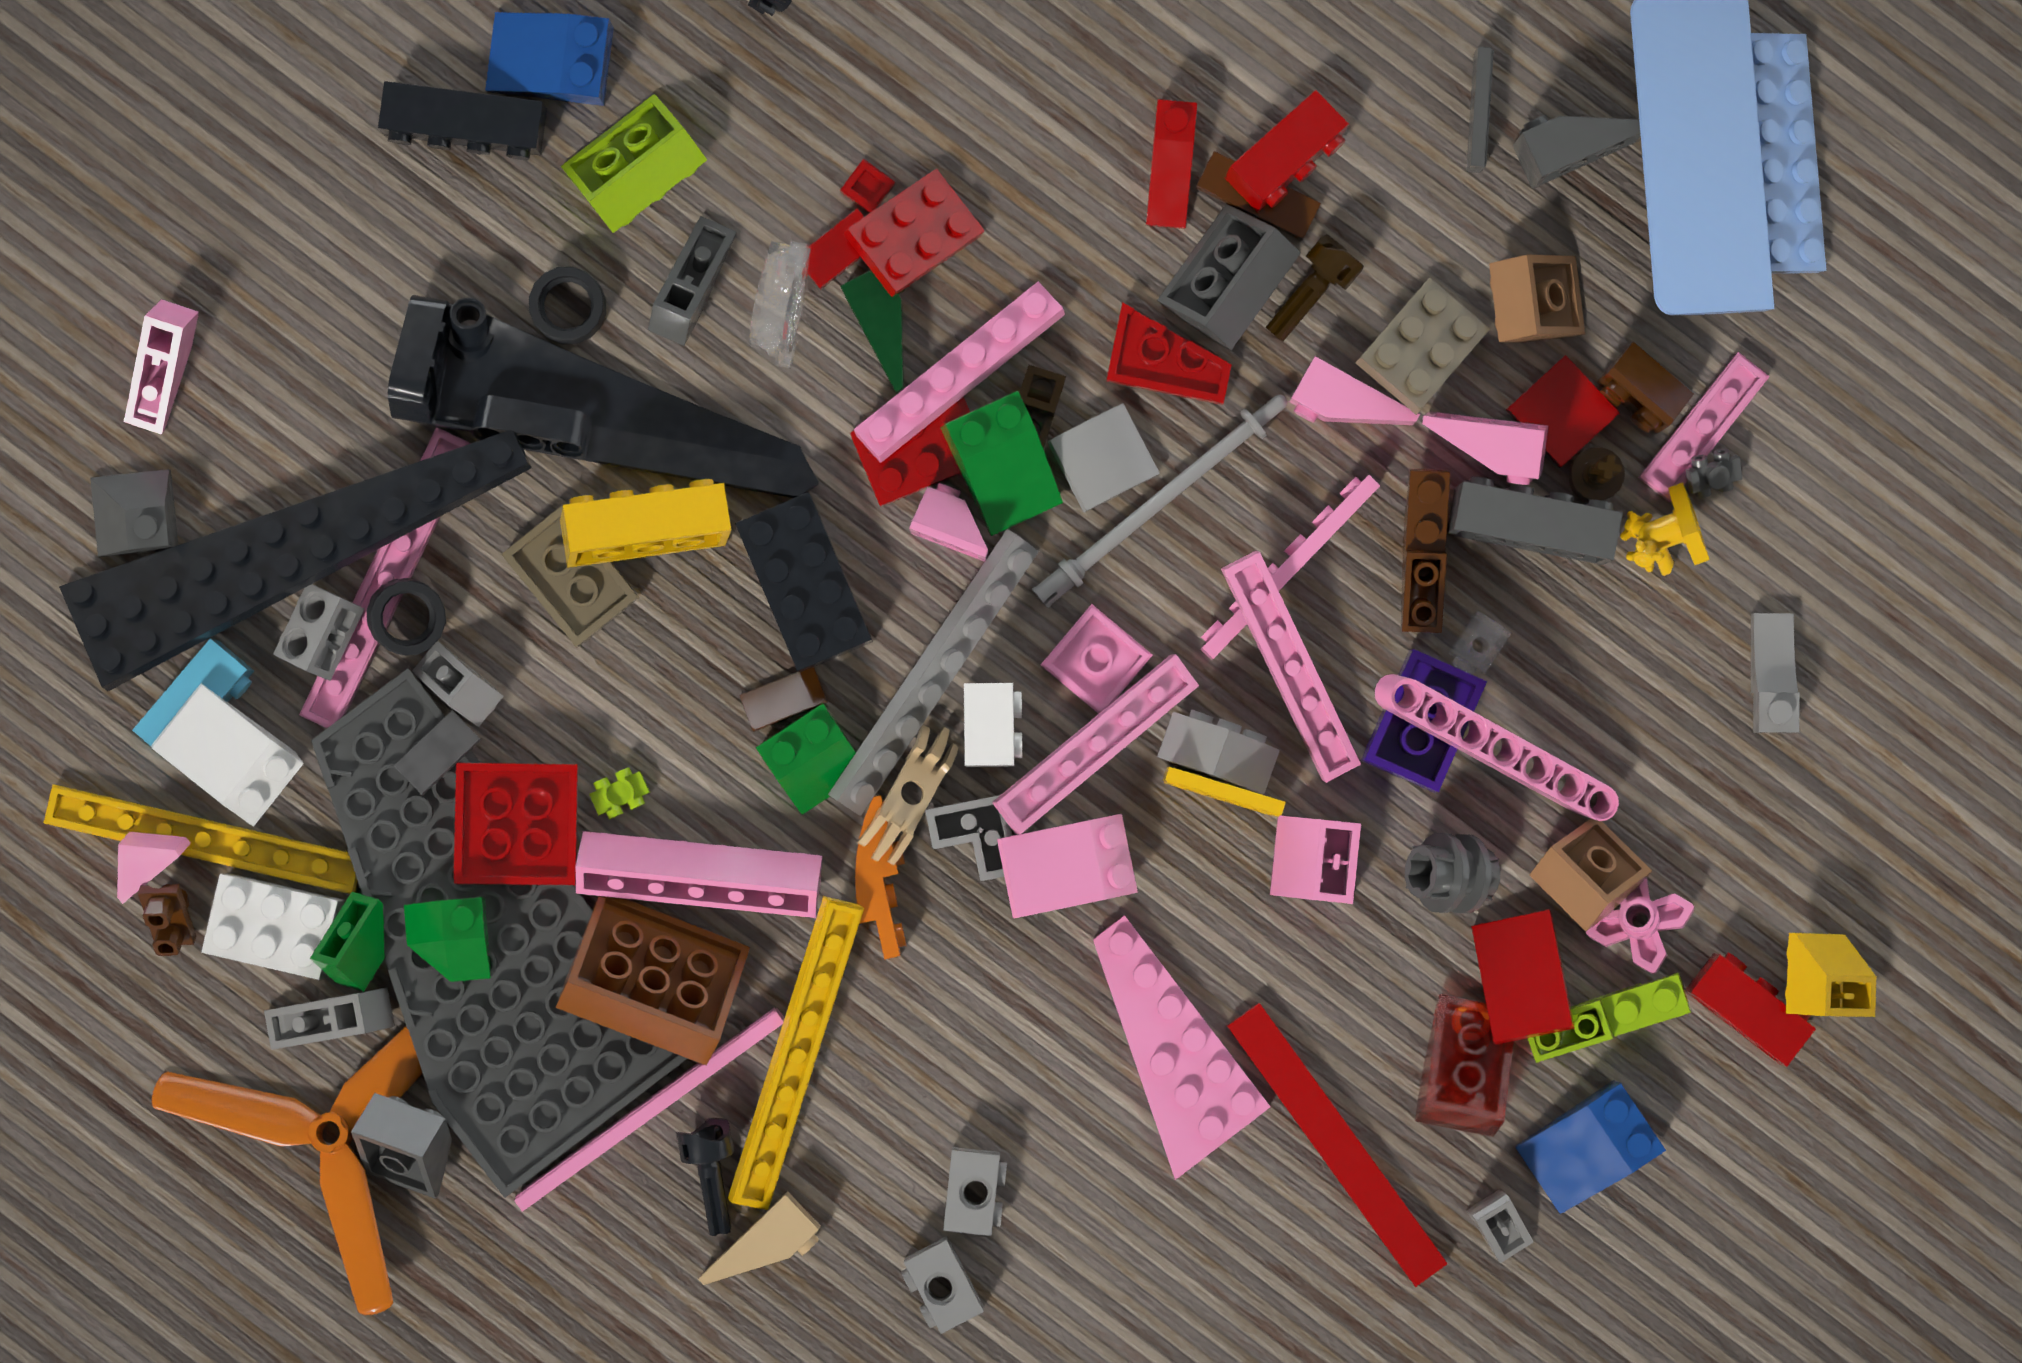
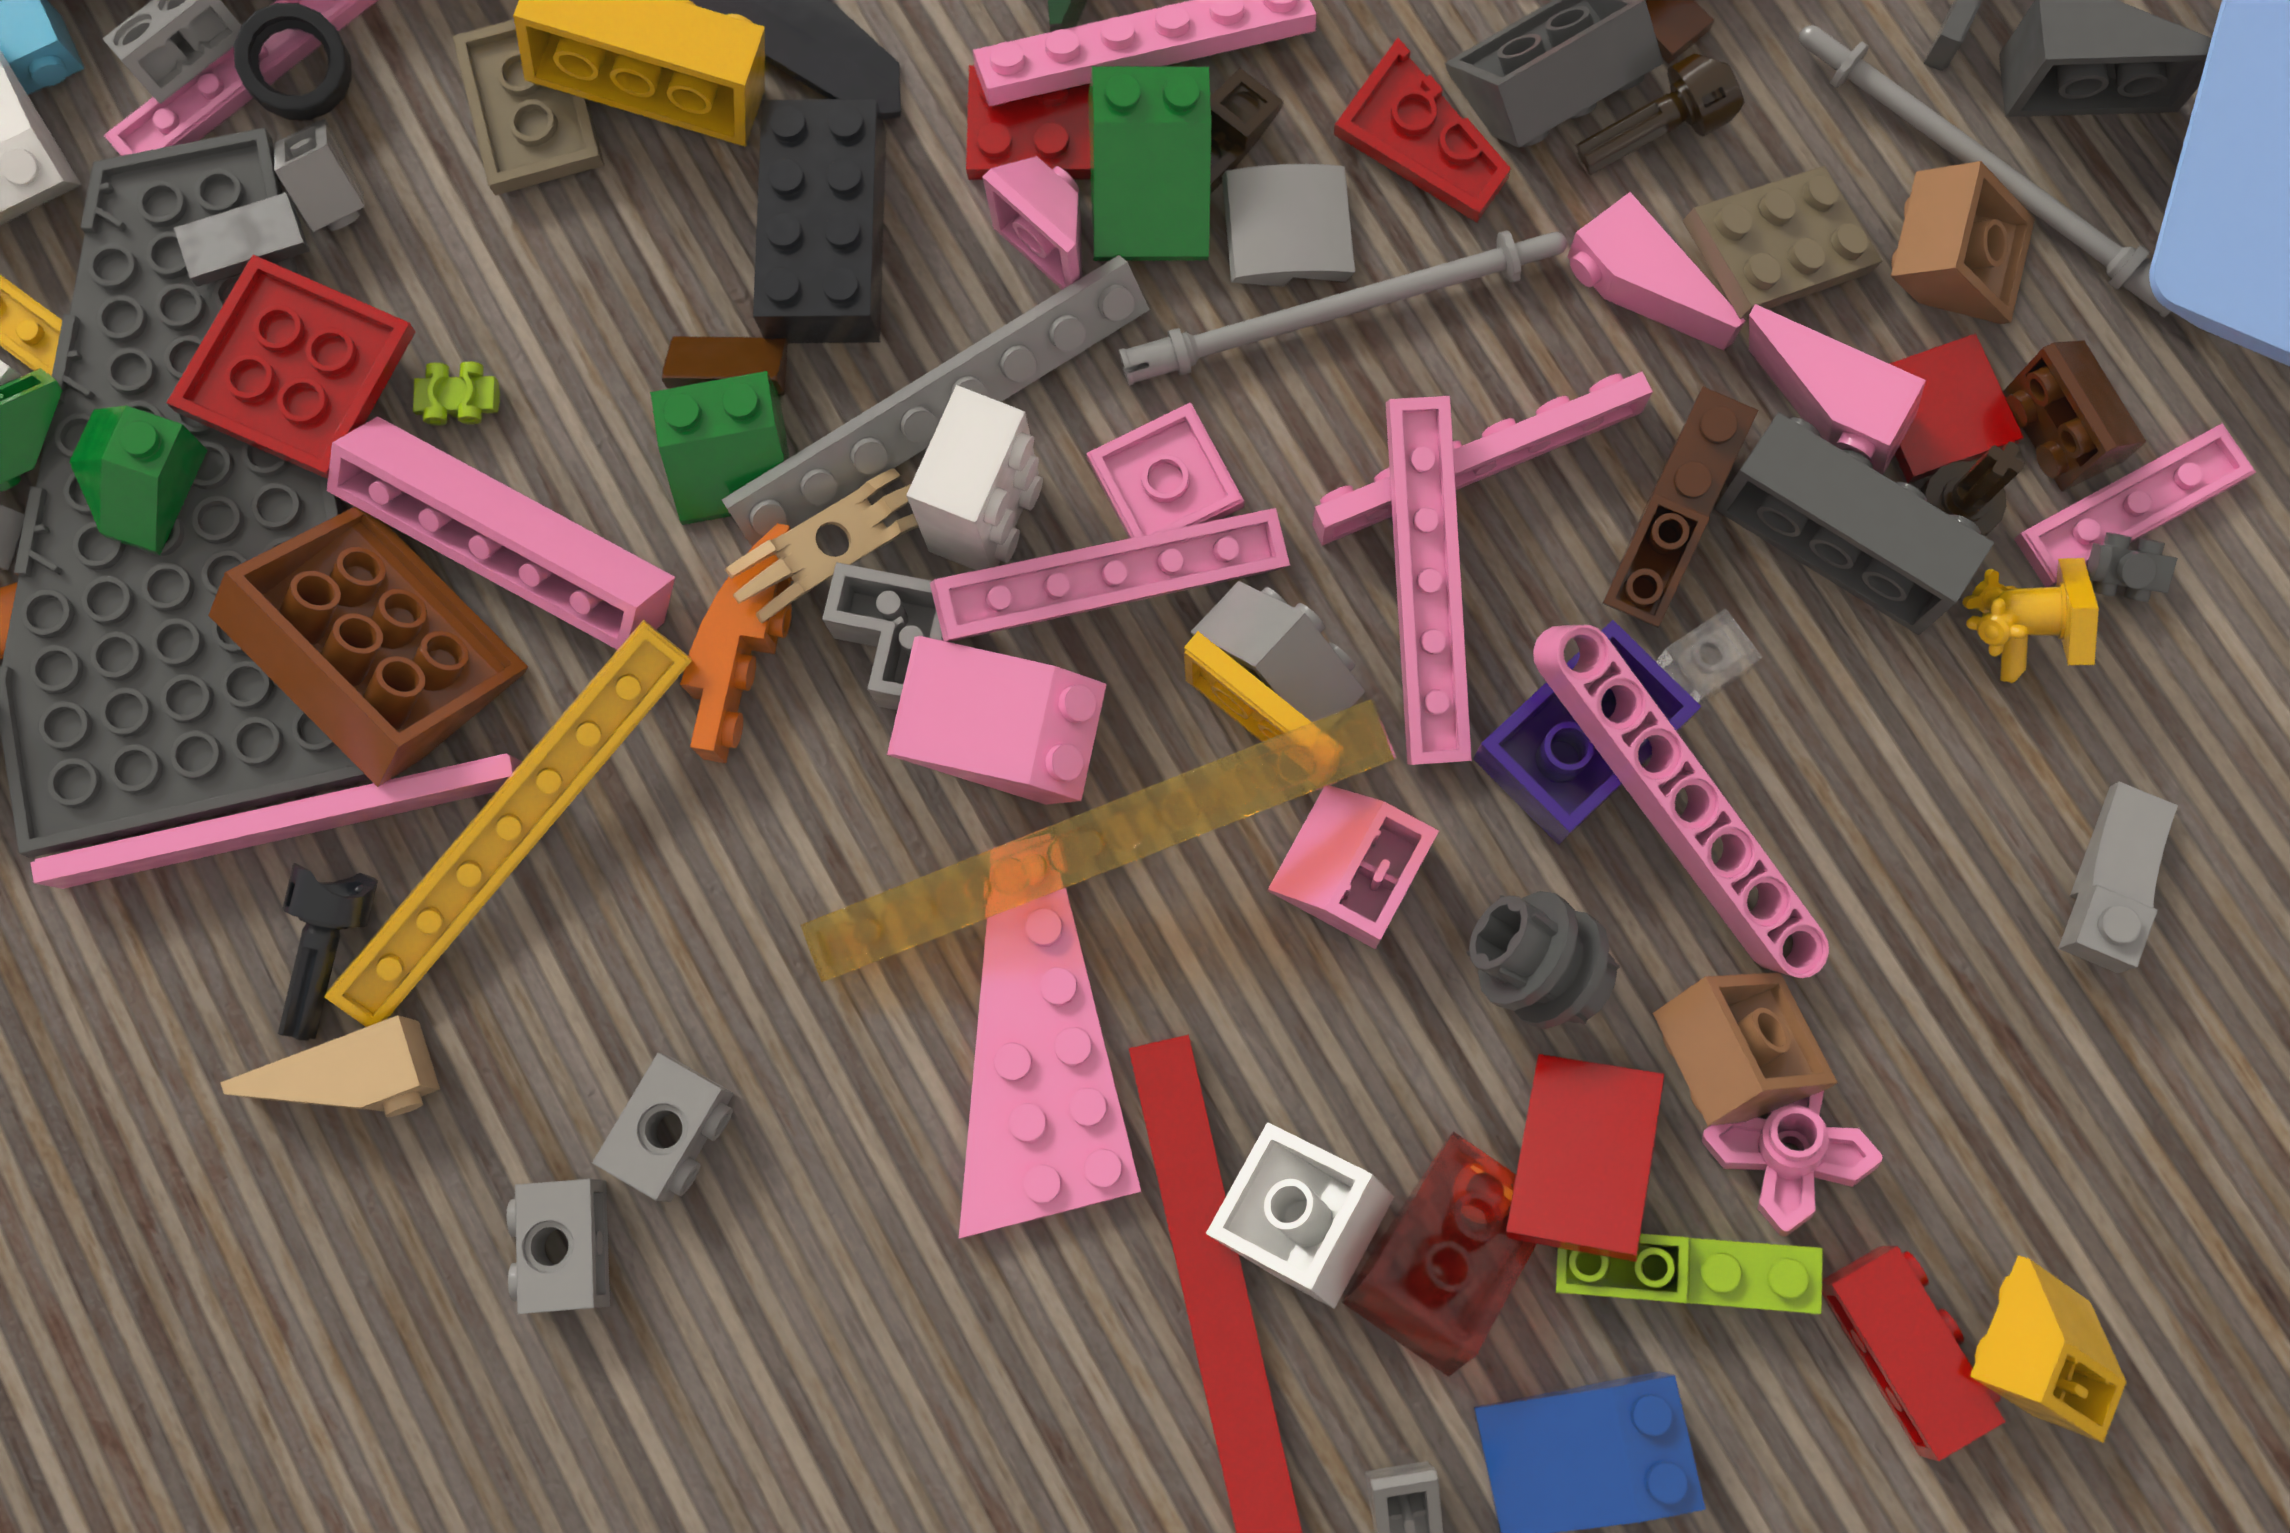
camera: 25 degrees right, 10 degrees down
(1160, 917) = (1100, 840): none -> clear yellow plate
(1370, 1081) = (1301, 1214): none -> white slope
(1639, 268) = (2123, 265): none -> light grey bar

